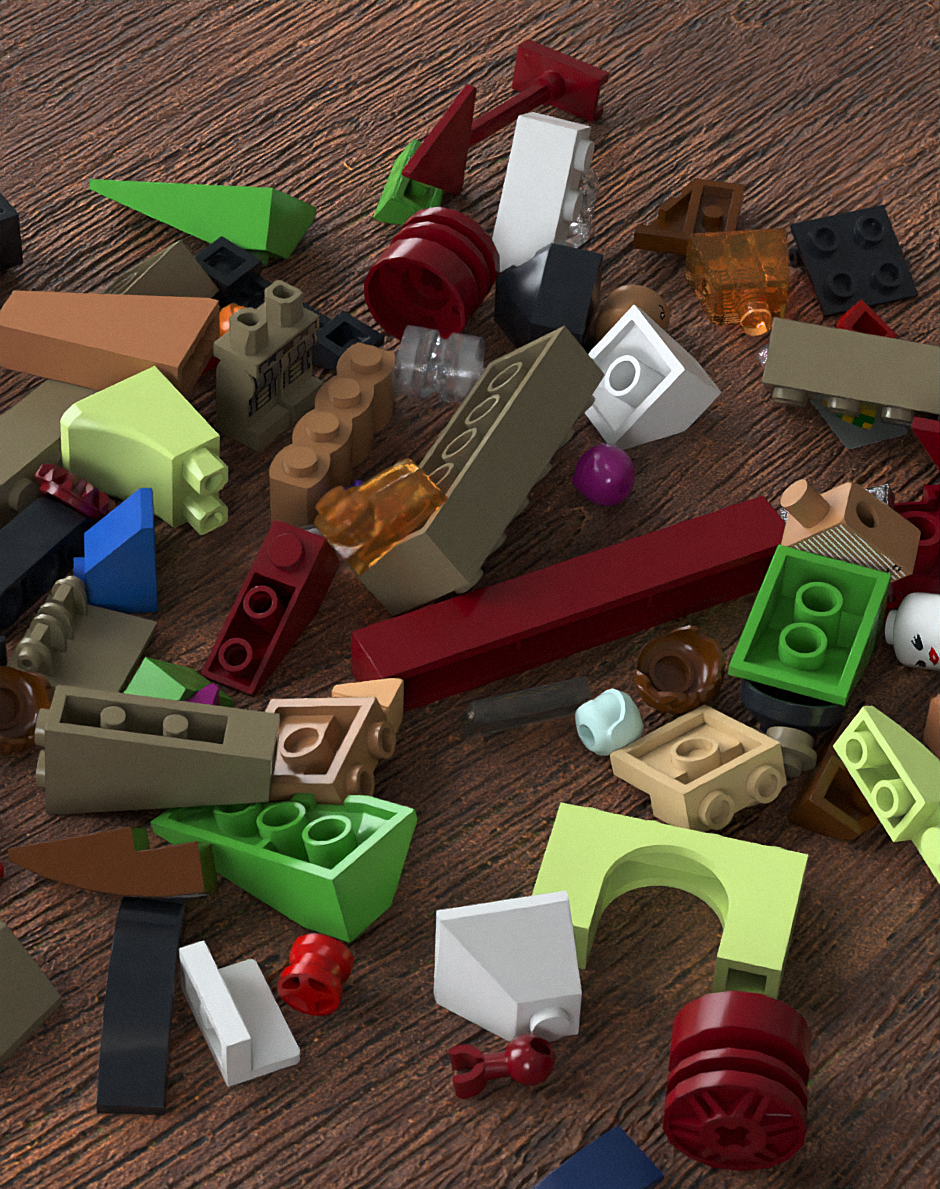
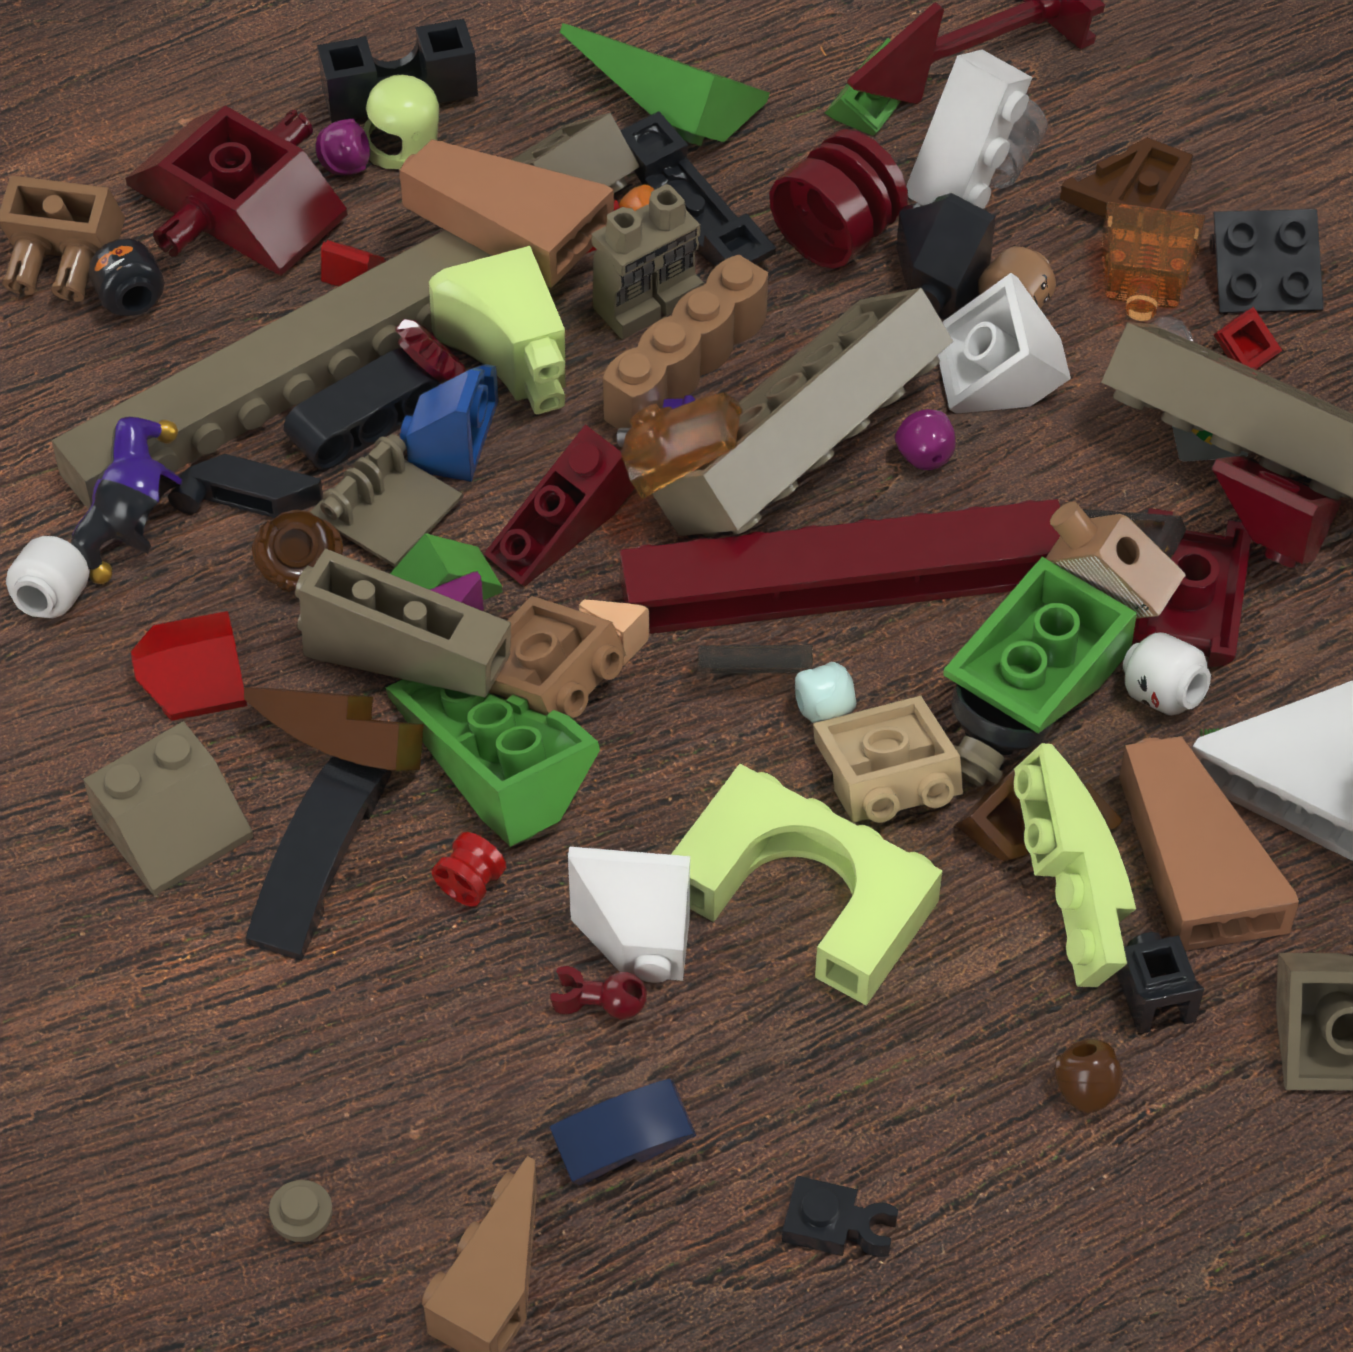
camera: 20 degrees right, 10 degrees up
(236, 1016) = (392, 888): white panel -> none
(438, 365) = (807, 288): clear wheel -> none
(680, 671) = (908, 657): reddish brown hair -> none
(738, 1081) = (785, 1067): dark red wheel -> none

